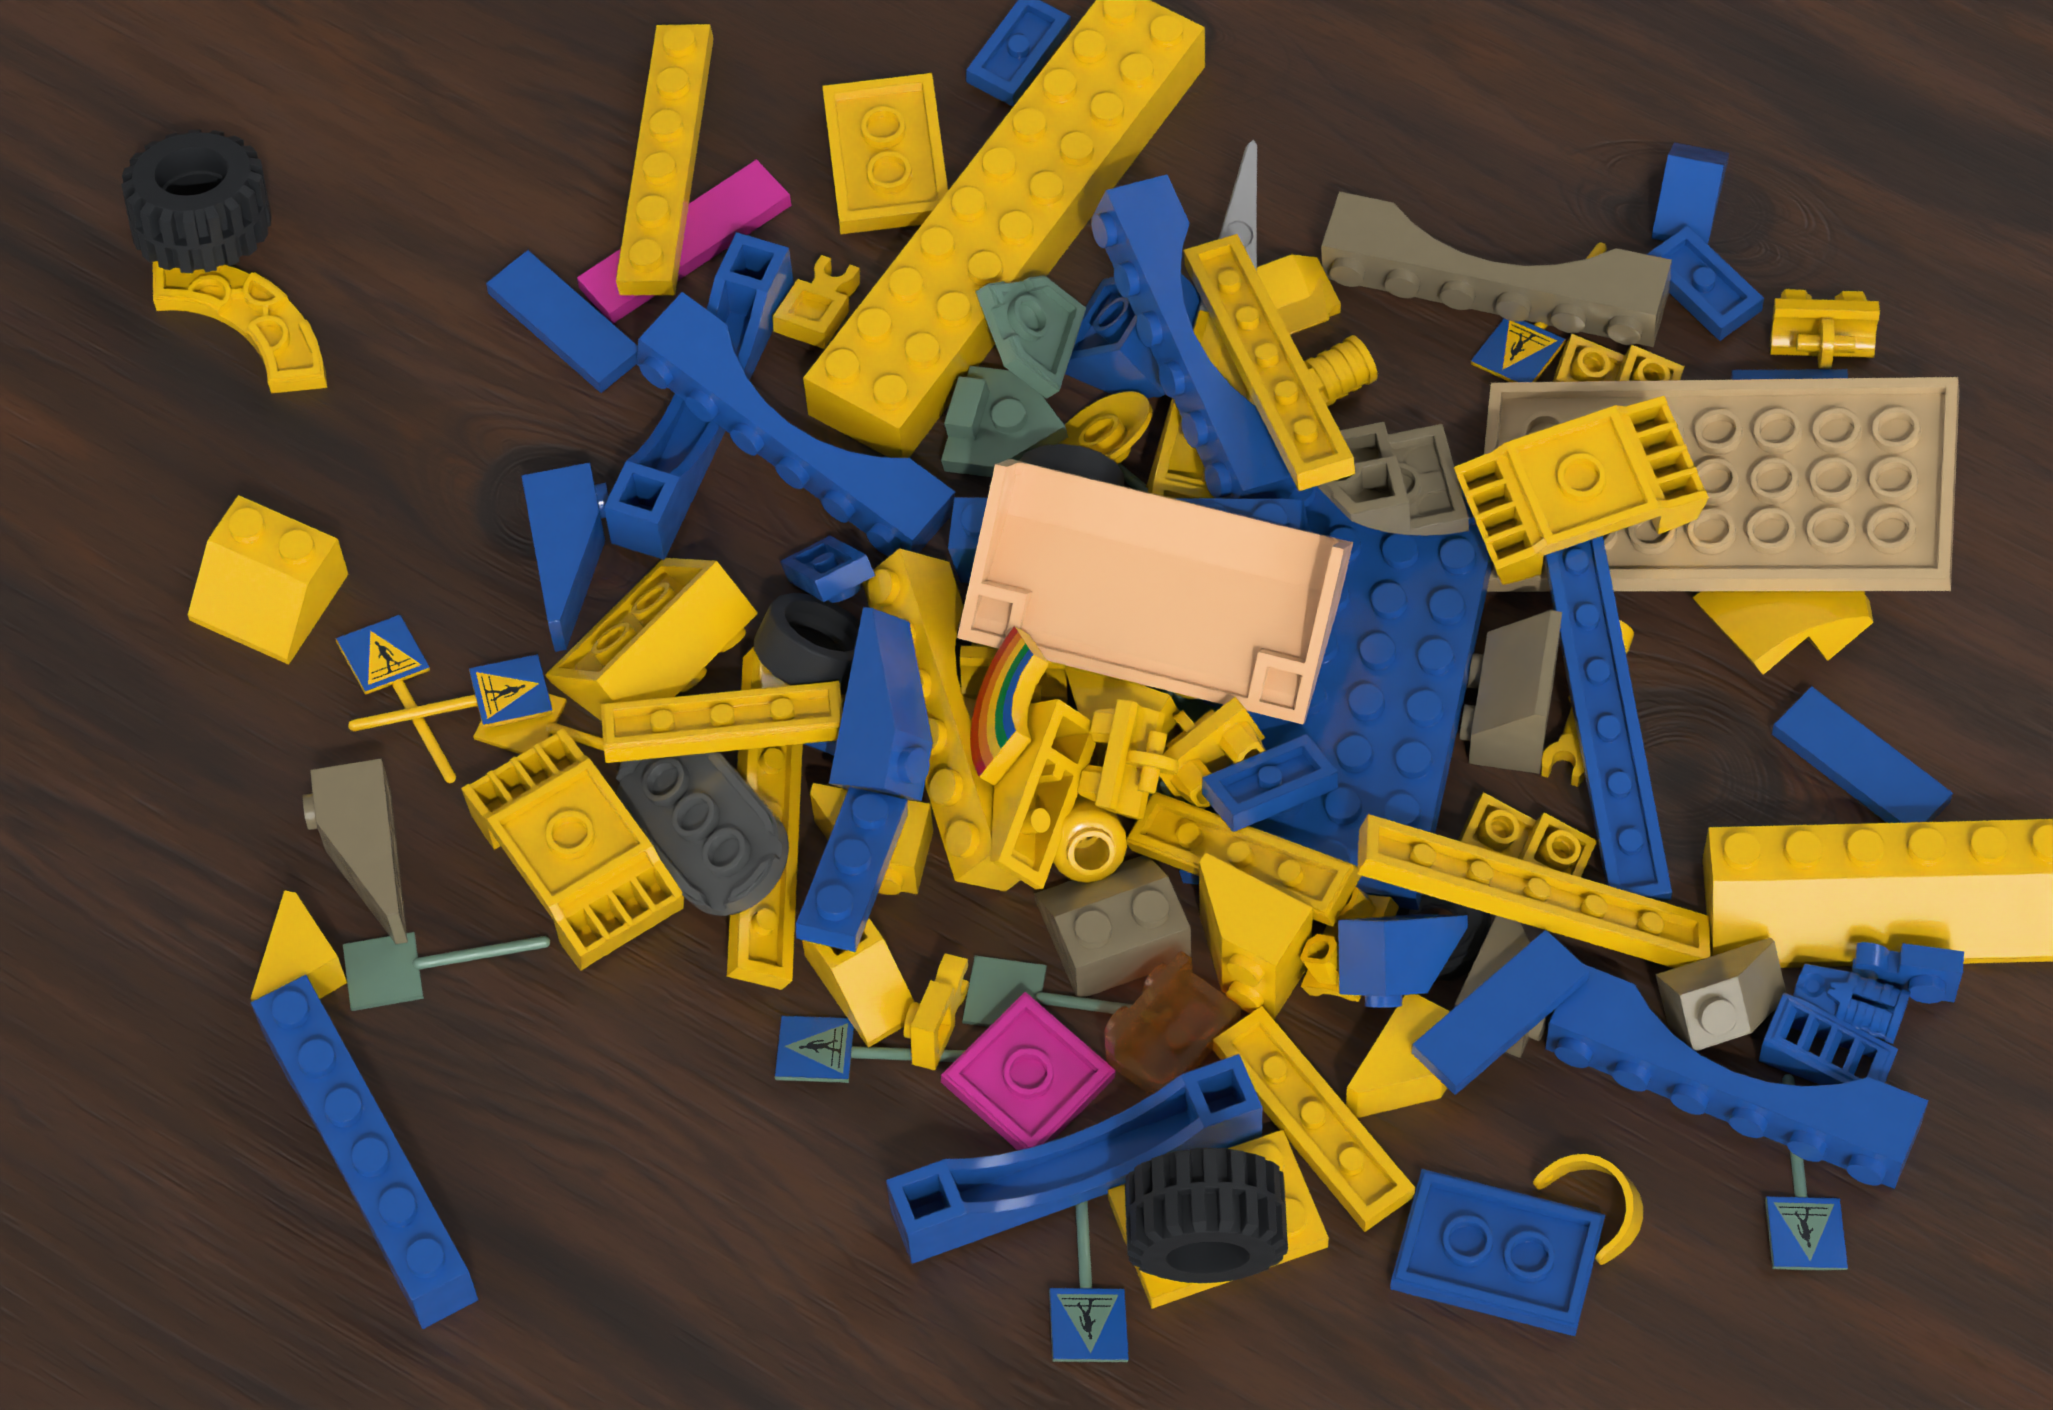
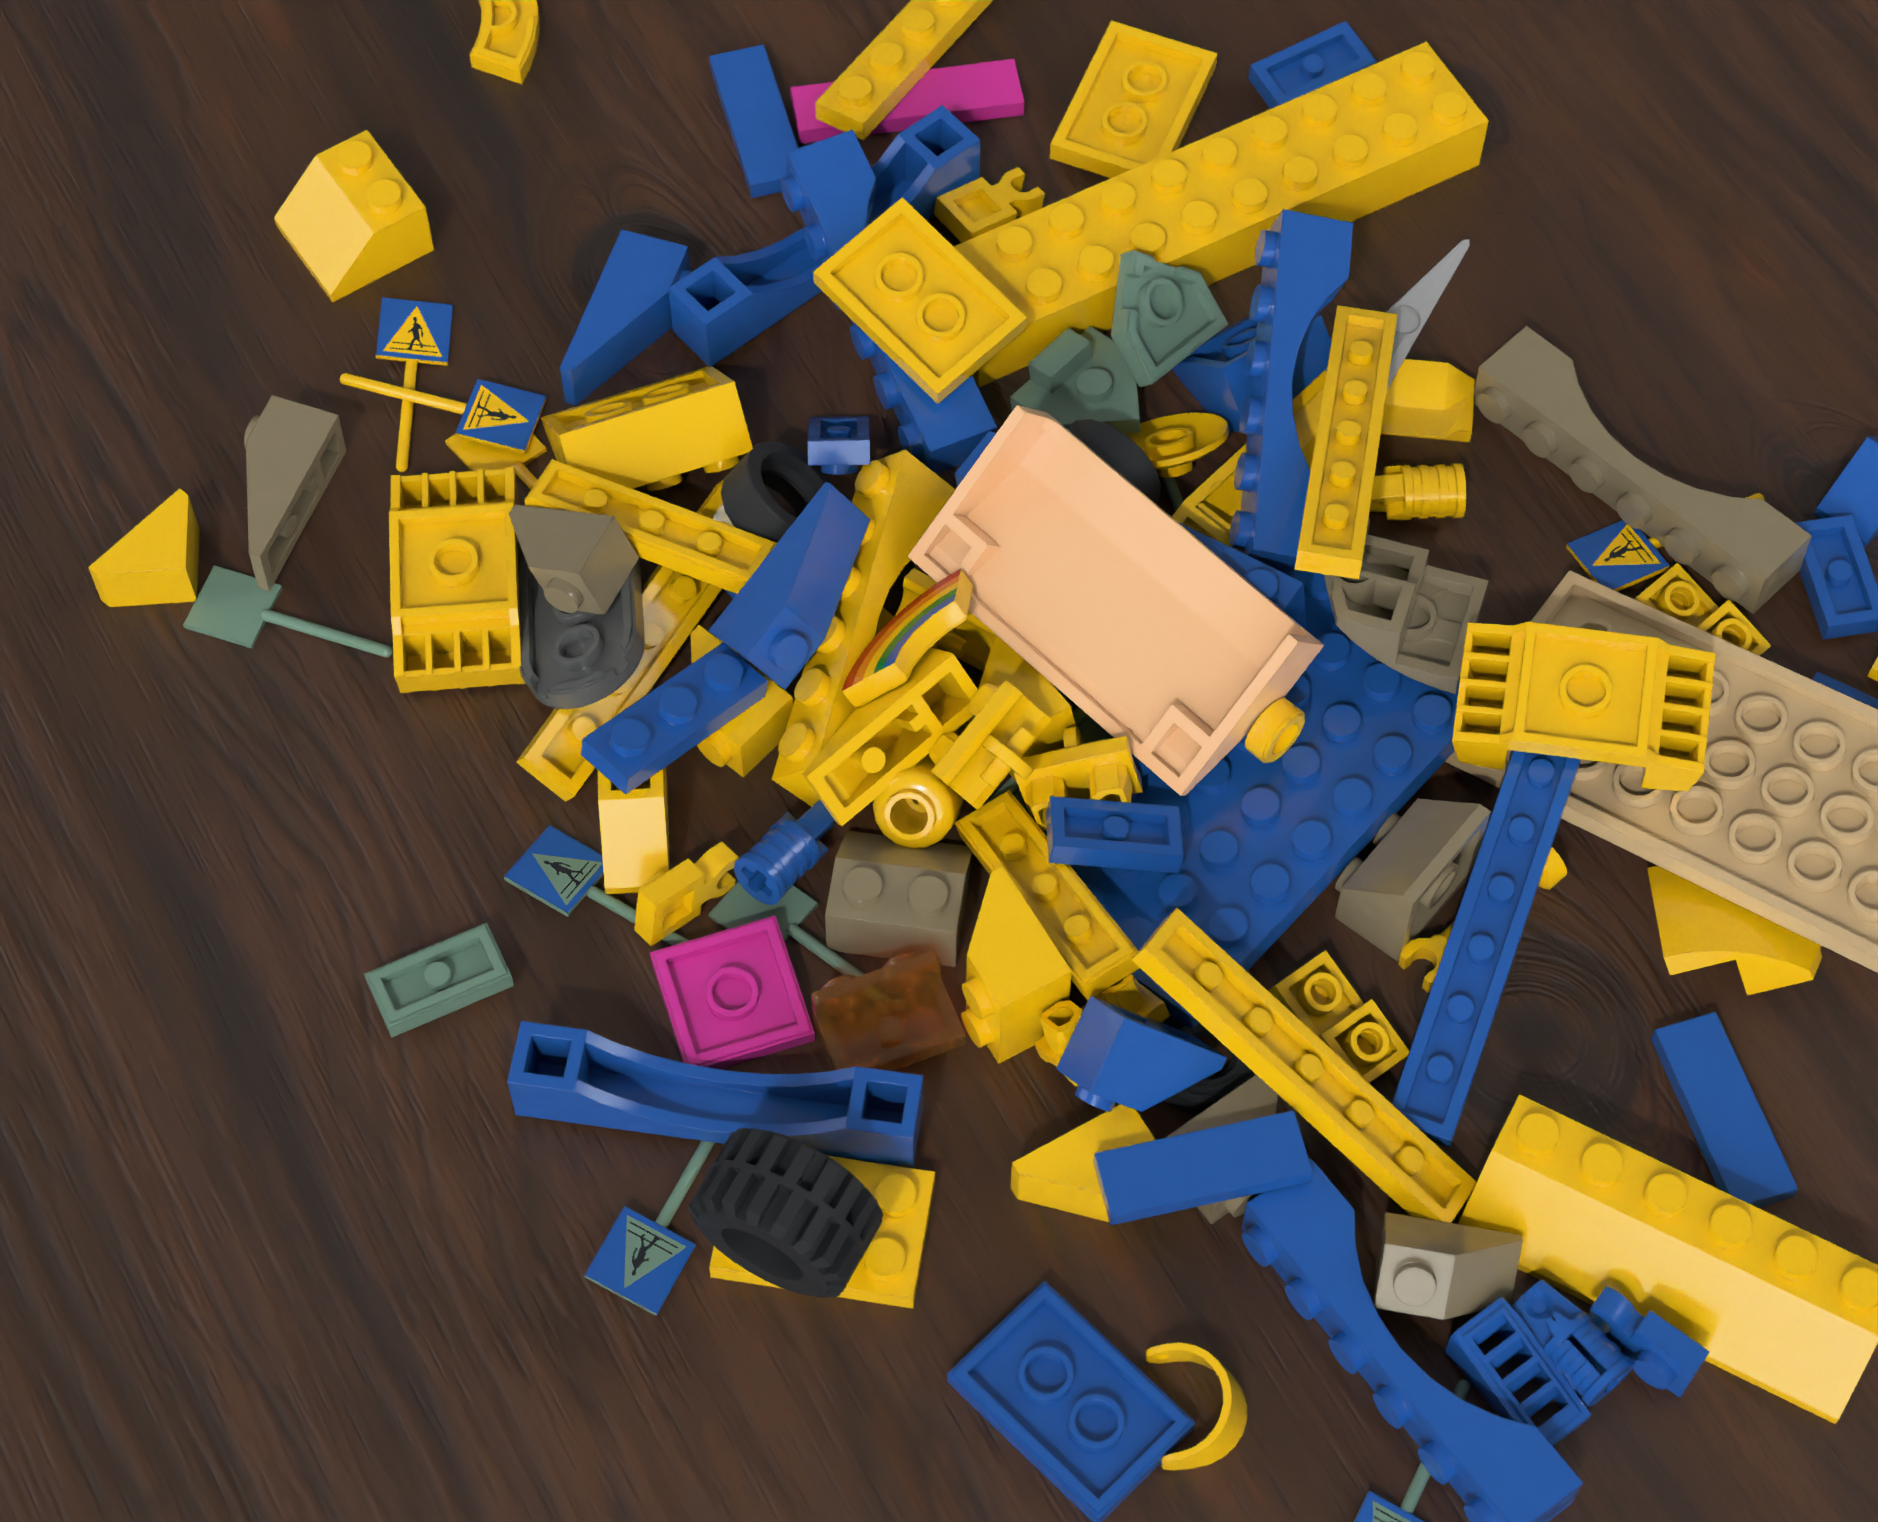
camera: 25 degrees right, 0 degrees up
(365, 1152) = (86, 834): blue arch -> none
(675, 777) = (574, 556): none -> dark tan slope
(778, 1188) = (439, 980): none -> sand green plate
(833, 413) = (920, 300): none -> yellow plate
(1000, 937) = (784, 854): none -> blue hinge
(1316, 1120) = (970, 1178): yellow plate -> none
(1346, 633) = (1275, 730): none -> yellow tile

